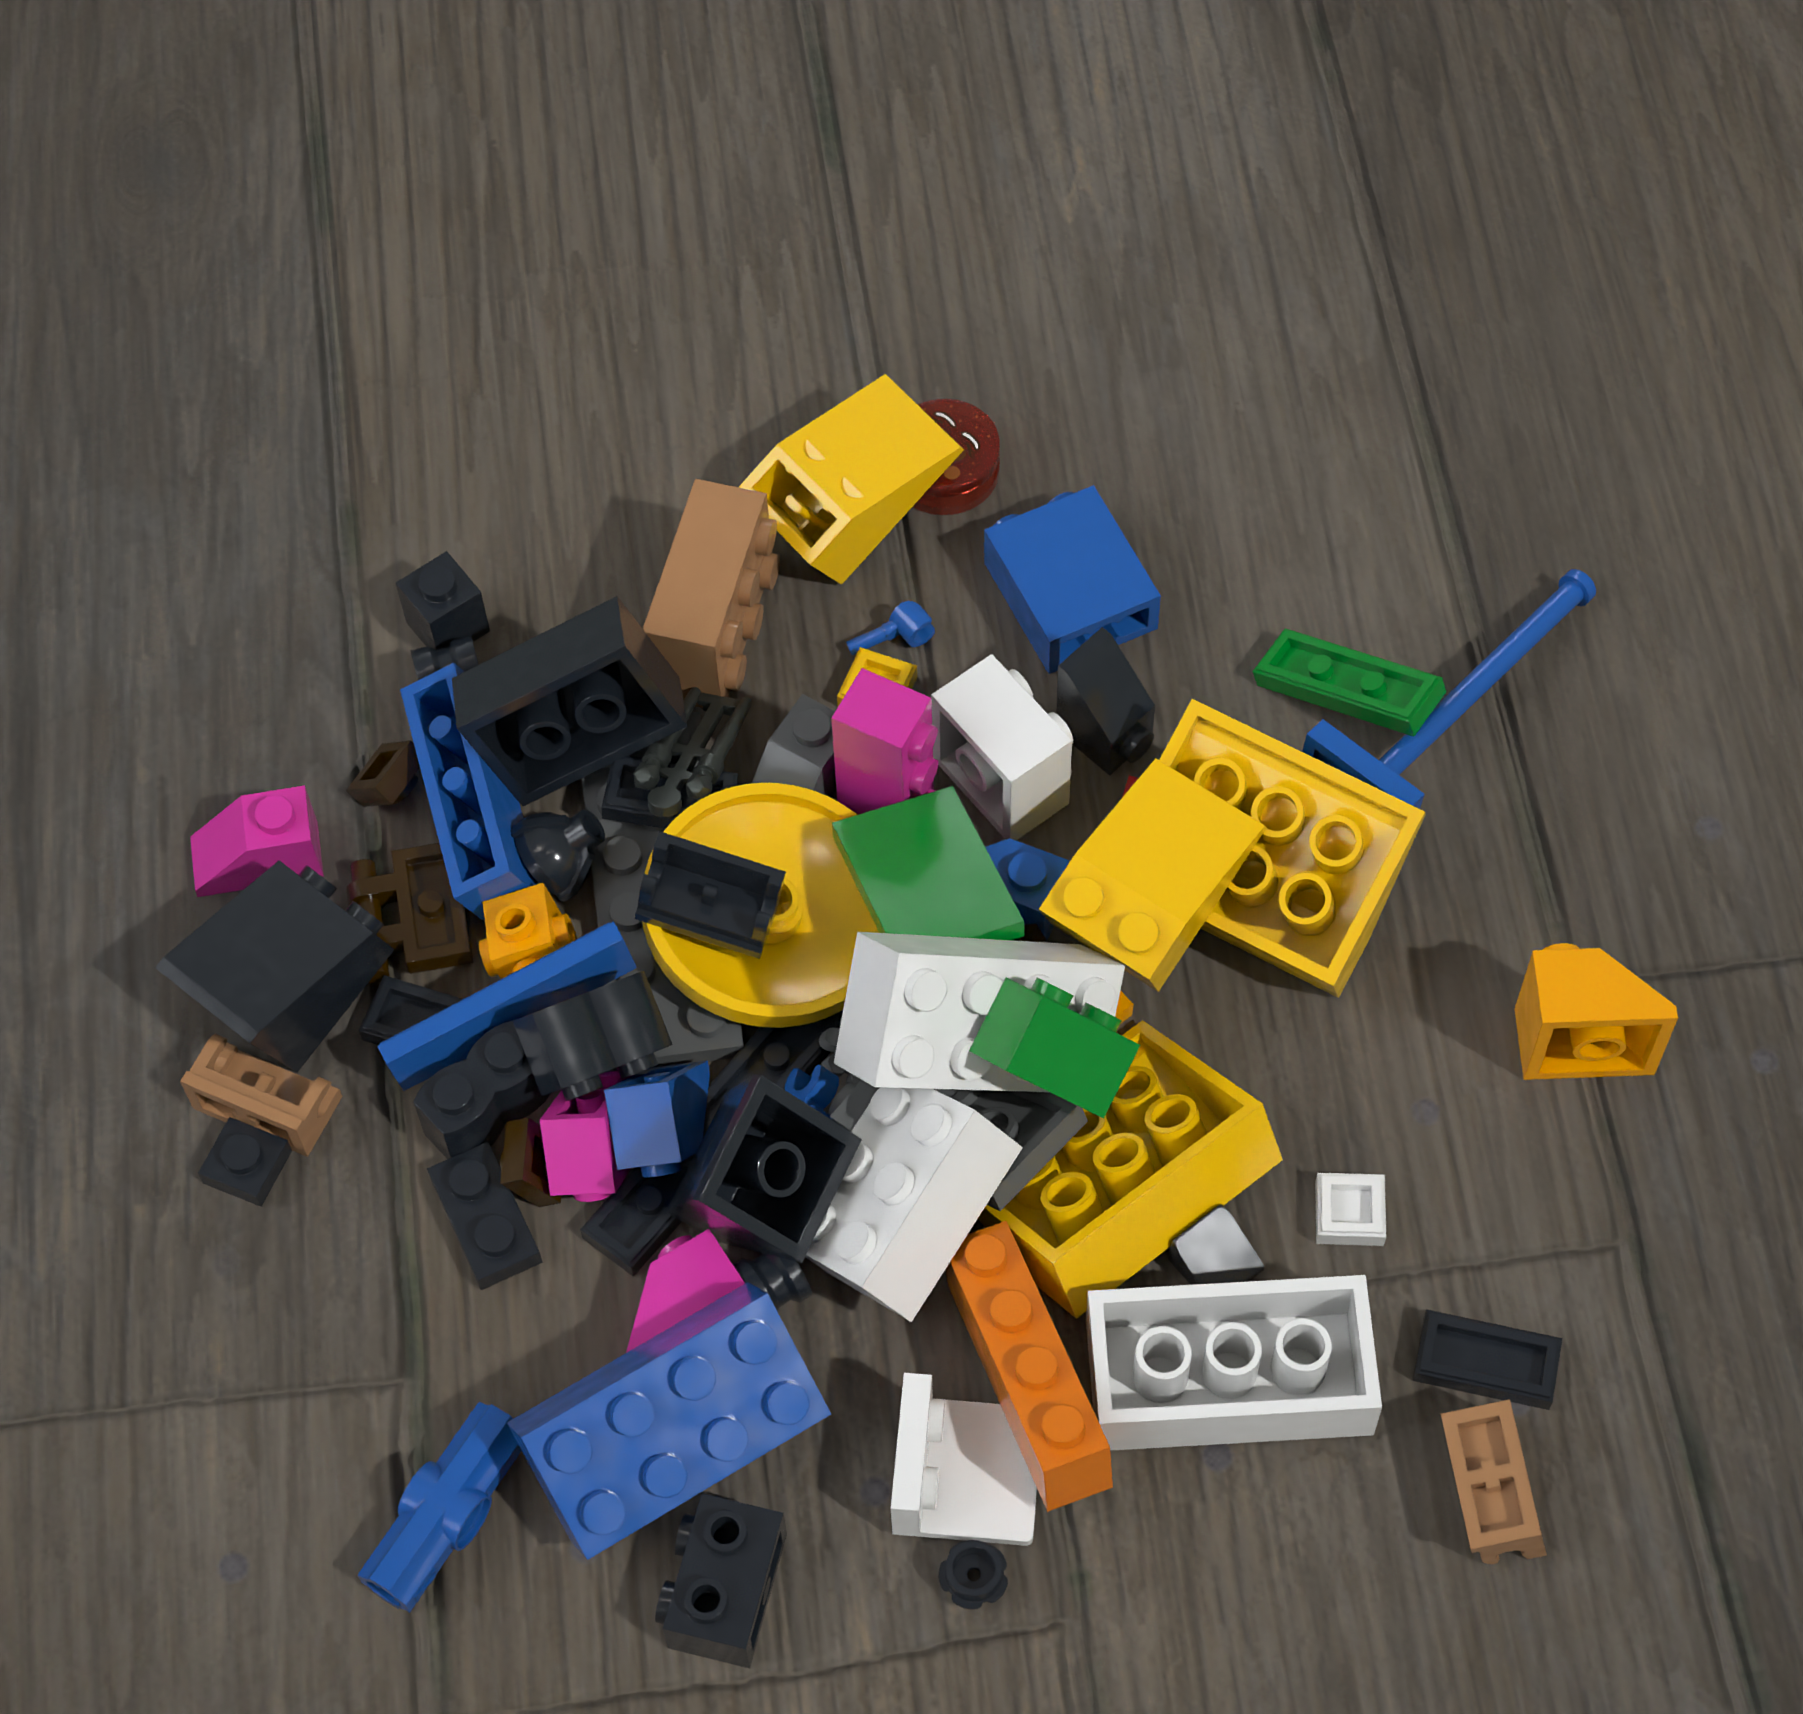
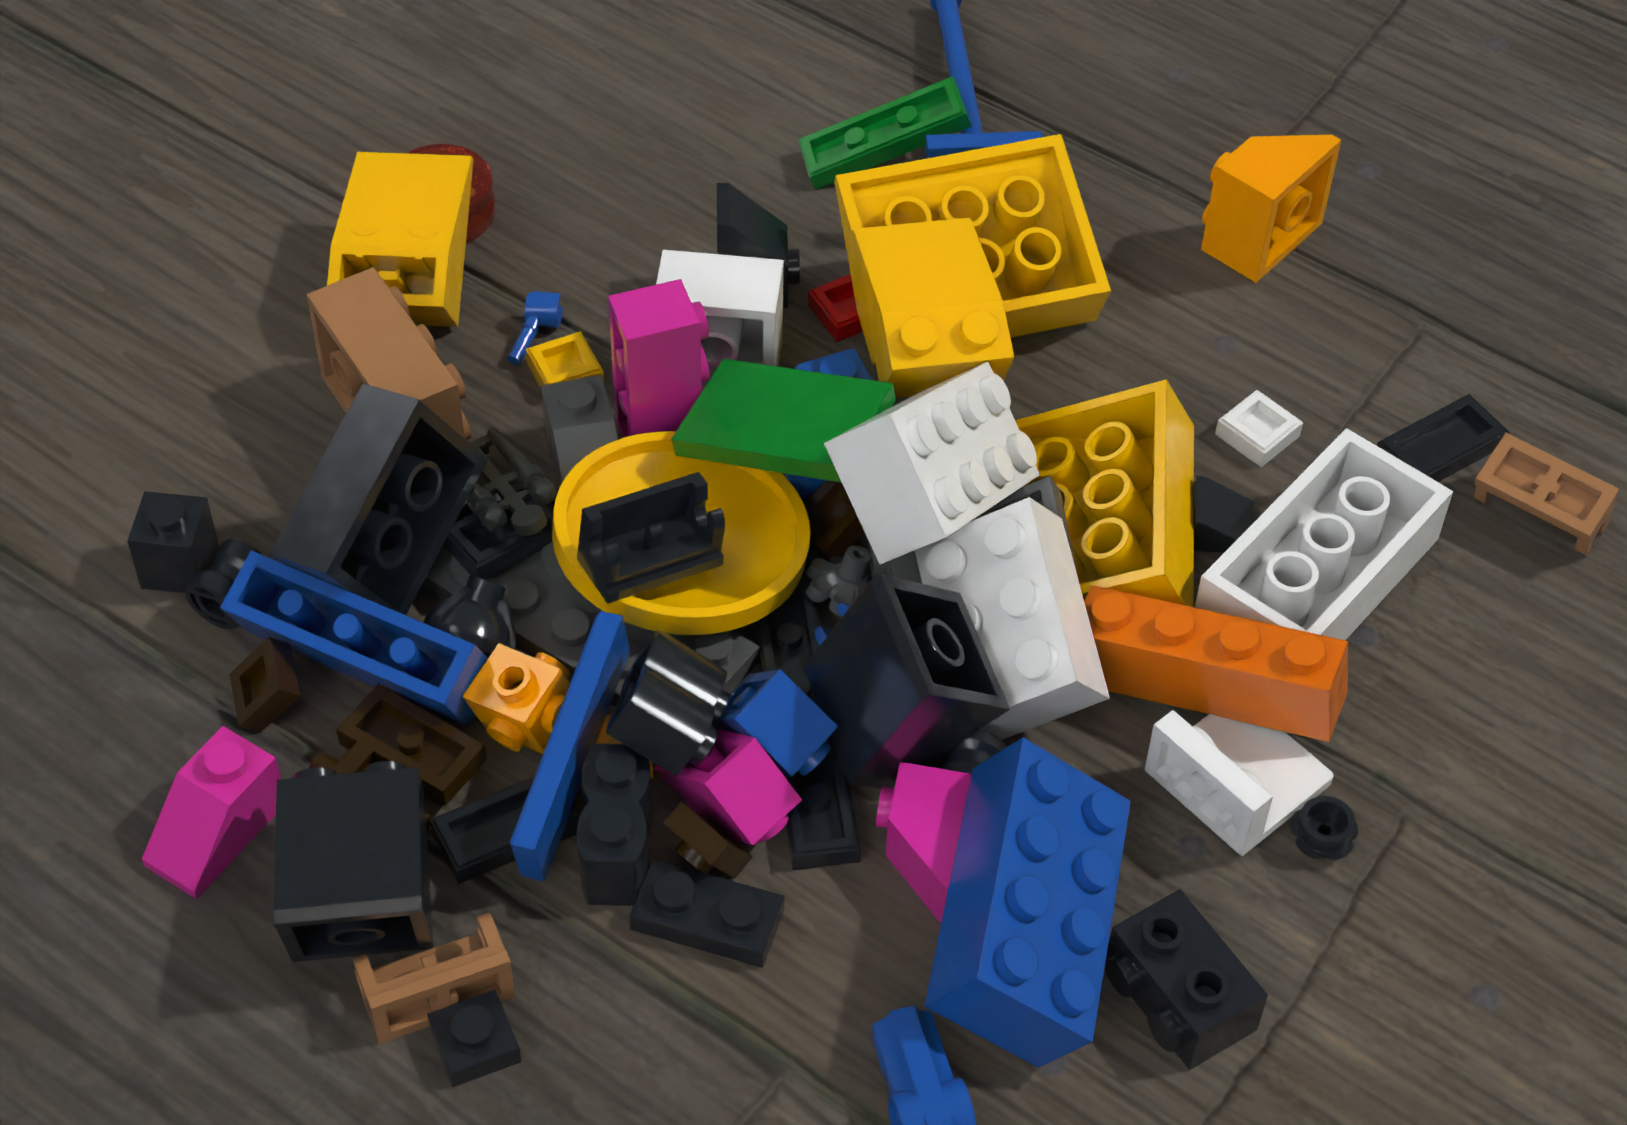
camera: 50 degrees left, 10 degrees down
(1054, 1046) = (1019, 427): green brick -> none
(1070, 575) = (622, 203): blue brick -> none

